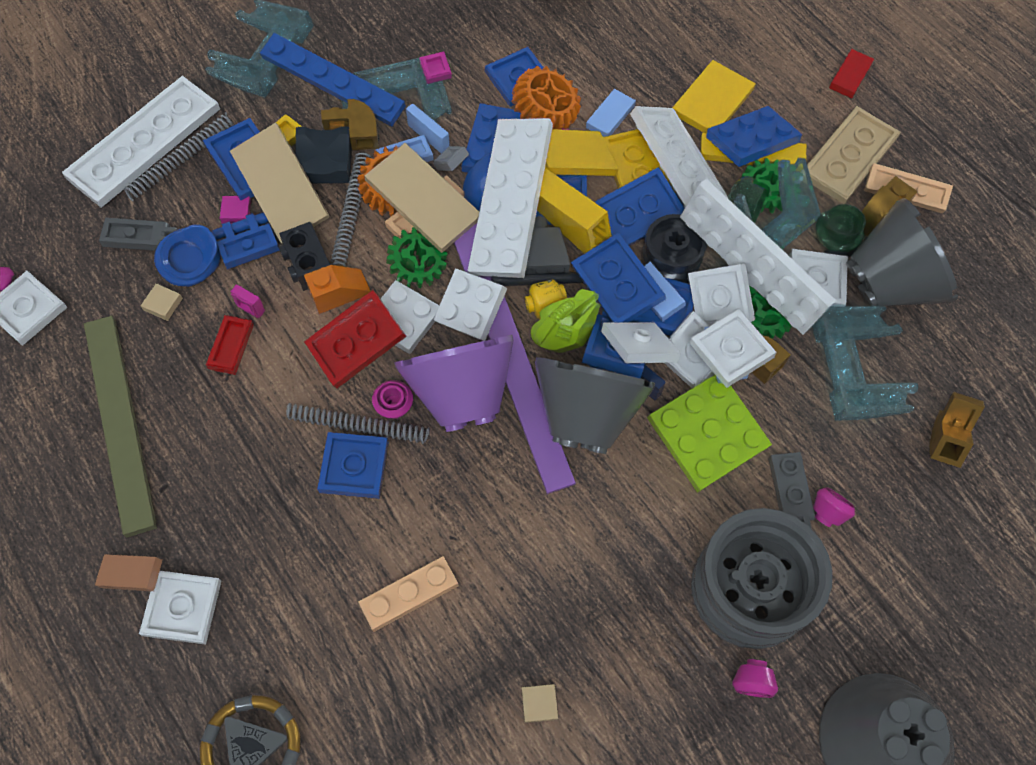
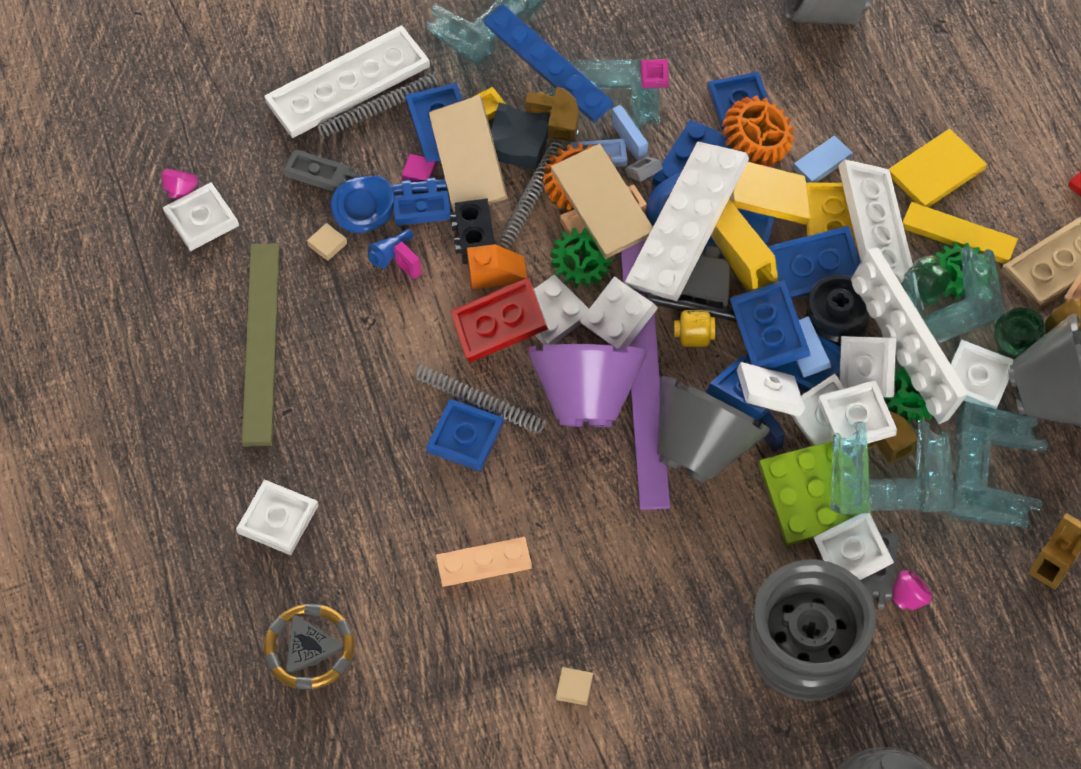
camera: 20 degrees right, 5 degrees down
(128, 572) = (239, 475): nougat tile -> none
(220, 298) = (383, 252): none -> blue cone
(229, 344) = (380, 297): red tile -> none
(392, 399) = (518, 384): dark pink cone -> none
(566, 322) = (705, 353): lime helmet -> none
(753, 136) = (963, 217): blue plate -> none
(755, 680) = (780, 720): dark pink cone -> none
(756, 423) = (856, 493): none -> clear light blue wedge
(767, 479) = (855, 546): none -> white plate

